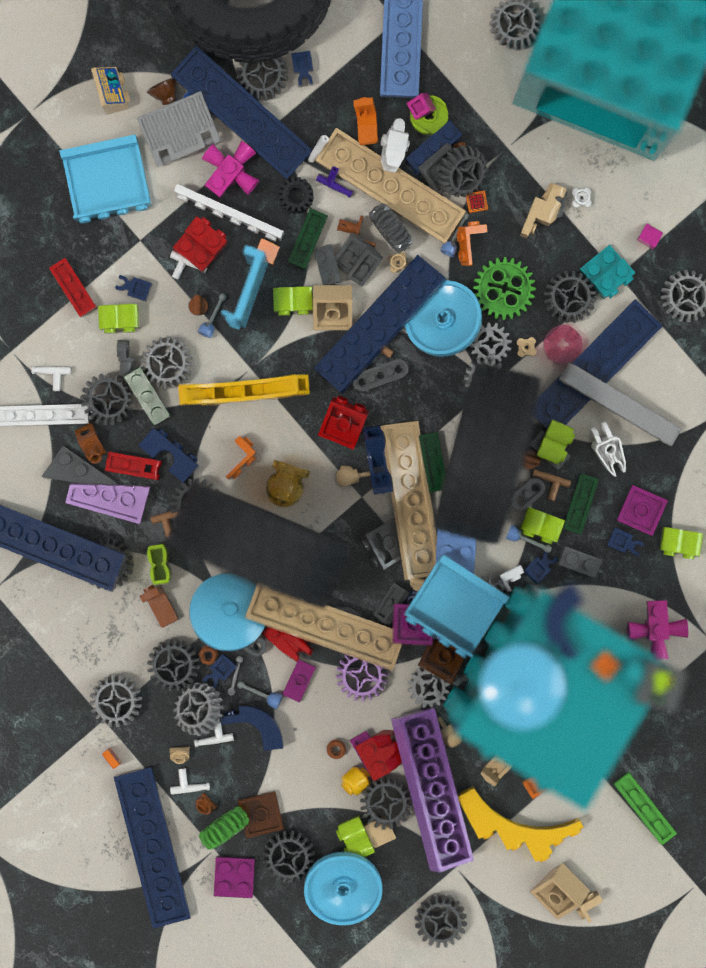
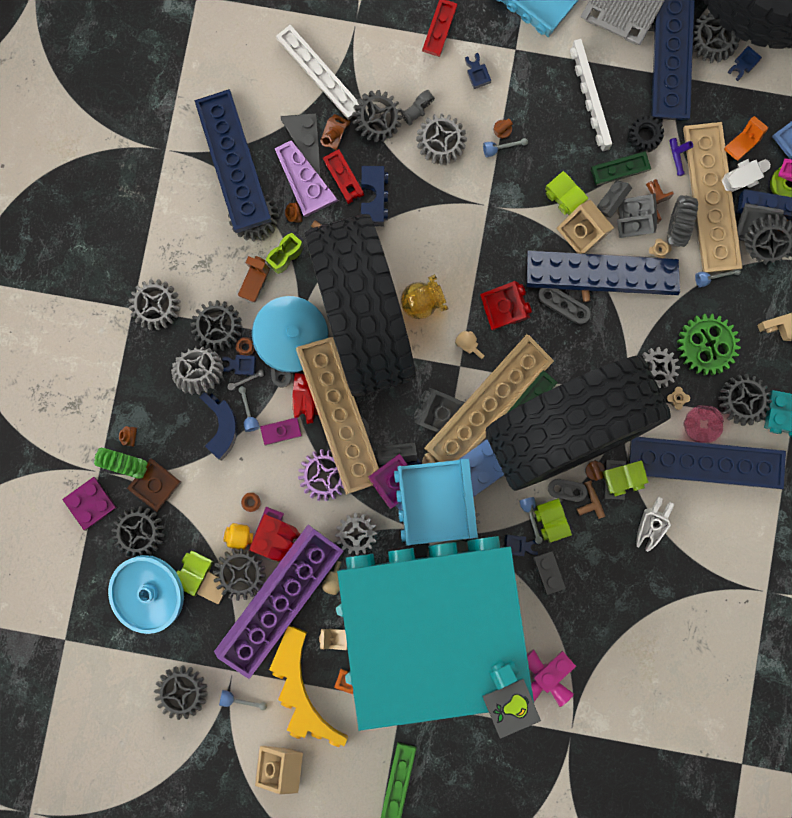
camera: 55 degrees right, 5 degrees down
(56, 371) = (367, 65): white piece -> none
(111, 758) = (108, 336): orange tile -> none
(118, 317) = (445, 77): lime brick -> none
(130, 529) = (293, 212): none -> dark orange plate
(146, 395) = (404, 143): plate -> none
(152, 847) = (62, 422): dark blue plate -> none
(179, 754) = (151, 386): tan plate -> none
(181, 264) = (527, 91): white piece -> none
(184, 787) = (129, 410): white piece -> none
(200, 243) = (551, 93): red plate -> none
(218, 738) = (188, 406): white piece -> none
(230, 169) = (624, 69): dark pink brick -> none
(244, 390) = (466, 210): yellow arch -> none
(246, 445) = (419, 257): orange bracket -> none
(259, 264) = (549, 150): medium azure panel -> none
(270, 249) = (585, 146): orange slope -> none
(318, 148) = (701, 119): white piece -> none
(378, 469) = (490, 361): dark blue arch -> none
(441, 661) = (385, 527): reddish brown tile -> none
(446, 321) = (647, 320): medium azure dish -> none
(463, 238) = (721, 281): orange bracket -> none
(475, 888) = (227, 699): none -> hinge
(476, 202) = (755, 271): tile -> none
(512, 575) = (495, 528): white bracket -> none
(522, 686) = (418, 594): medium azure dish -> none
(555, 616) = (496, 574): dark blue arch -> none
(580, 503) = (594, 537): dark green plate -> none
(592, 900) = (289, 800): tan bracket -> none
(605, 665) = (490, 648): orange tile -> none
(620, 404) = (696, 504): light grey beam -> none
(622, 541) = (591, 594): dark blue plate -> none
(641, 510) = (628, 589): magenta plate -> none
(681, 542) = (629, 641): lime brick -> none

